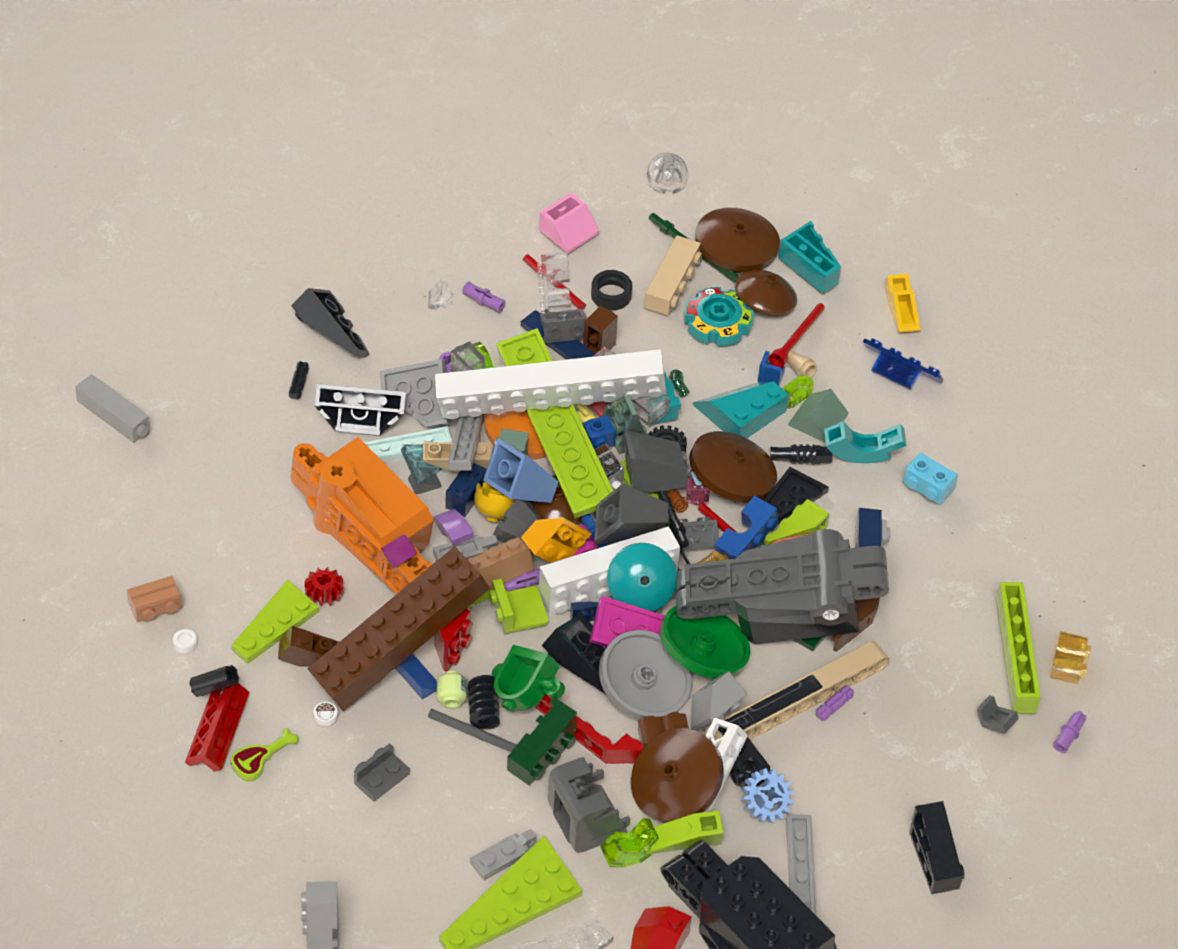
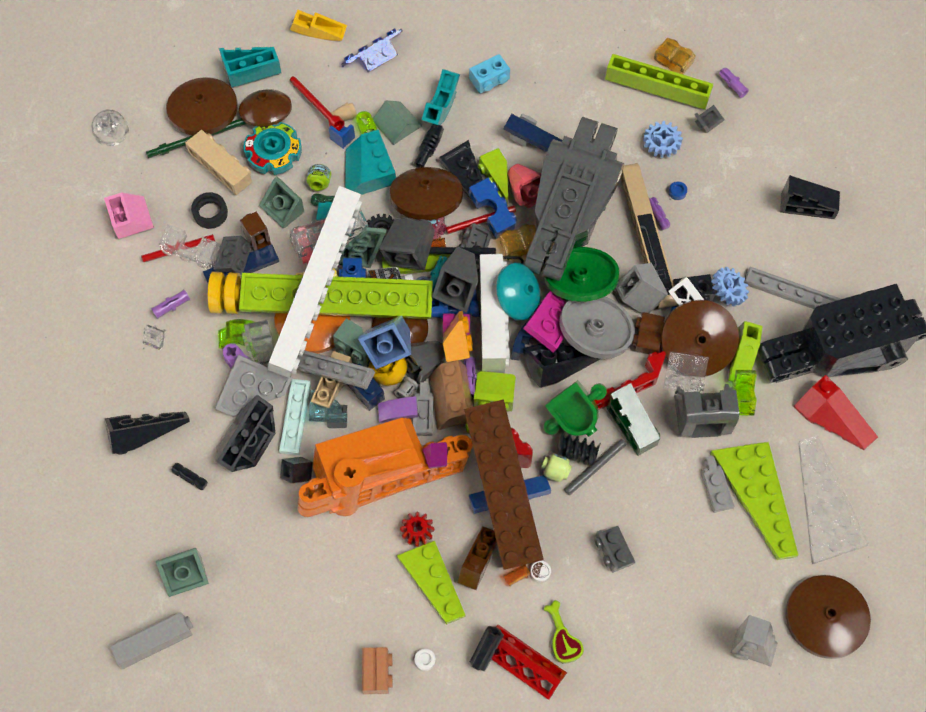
camera: 65 degrees left, 15 degrees up
(193, 407) = (182, 572): none -> sand green slope
(312, 692) = (517, 575): none -> clear orange pin
(476, 525) = (406, 388): none -> light grey bush
(510, 322) = (224, 292): none -> yellow wheel
(627, 779) = (686, 371): none -> clear hinge
(656, 339) = (282, 203): none -> sand green slope
(703, 368) = (318, 177): none -> lime head
(878, 715) = (678, 190): none -> blue tile
(939, 677) = (662, 139): none -> light blue gear

